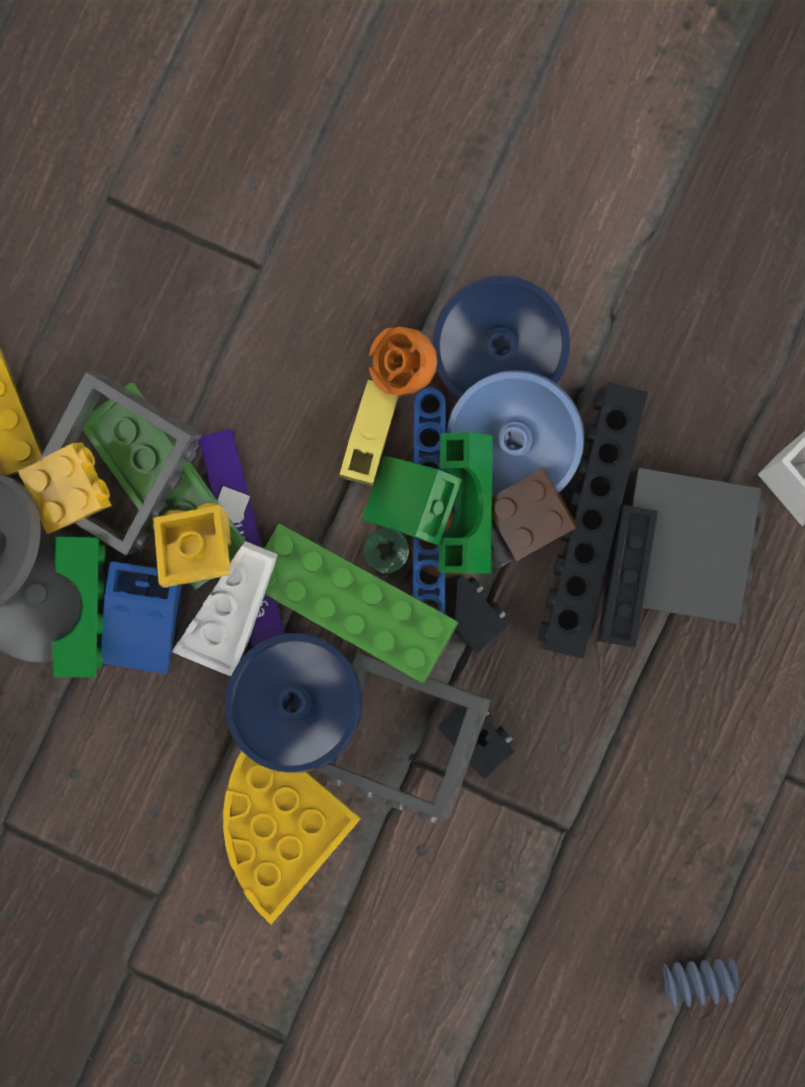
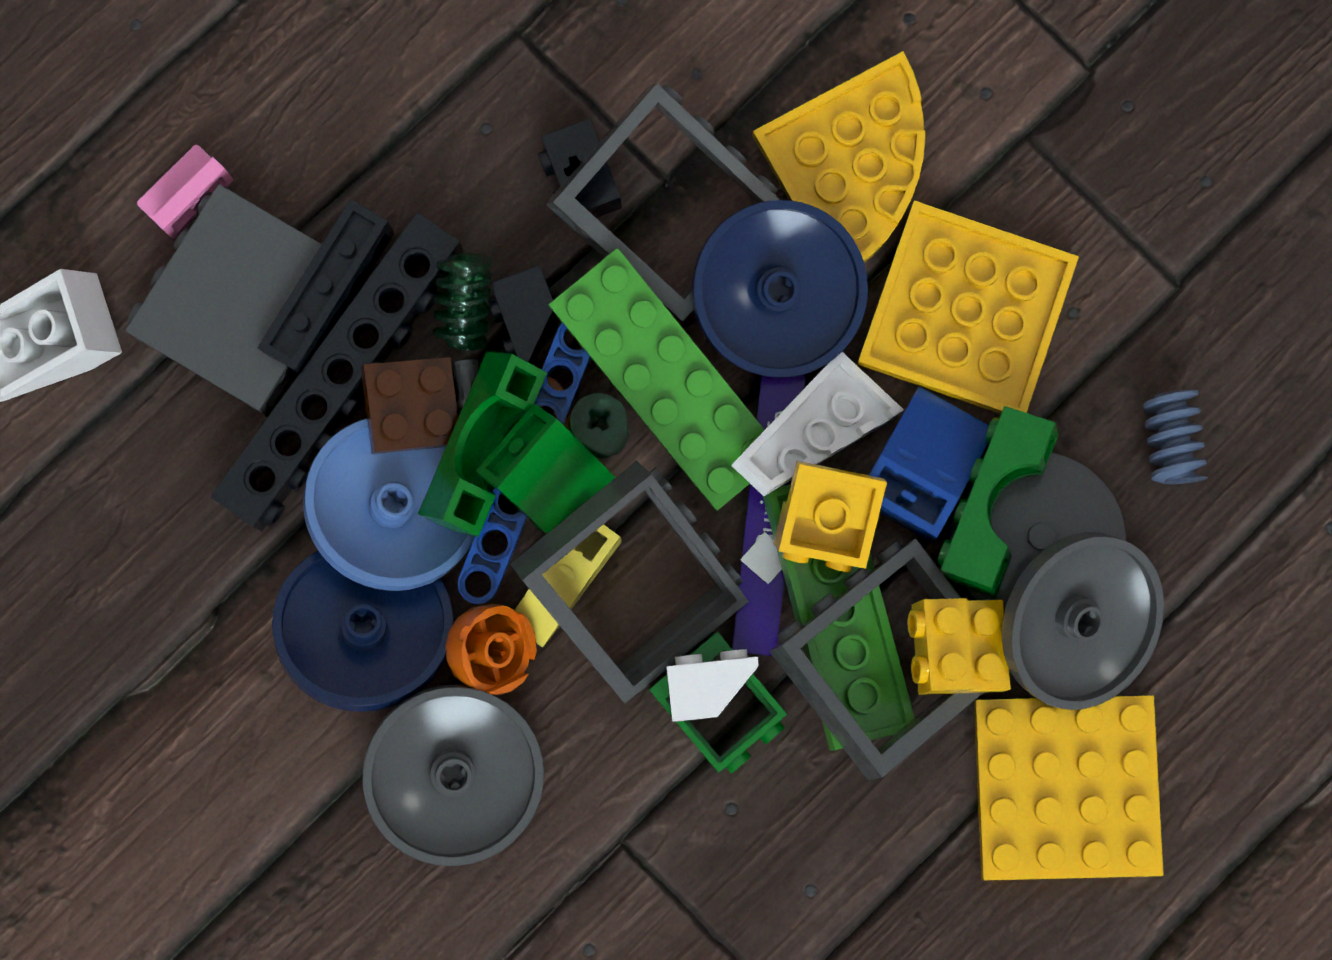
camera: 150 degrees left, 5 degrees down
(151, 744) = (967, 310): none -> yellow plate
(234, 389) = (706, 688): none -> white slope
(257, 402) = (765, 730): none -> green window
(274, 422) = (676, 637): none -> dark grey window
(394, 263) = (452, 775): none -> dark grey dish
(523, 605) = (464, 301): none -> clear green piece
(765, 613) = (177, 194): none -> bright pink panel

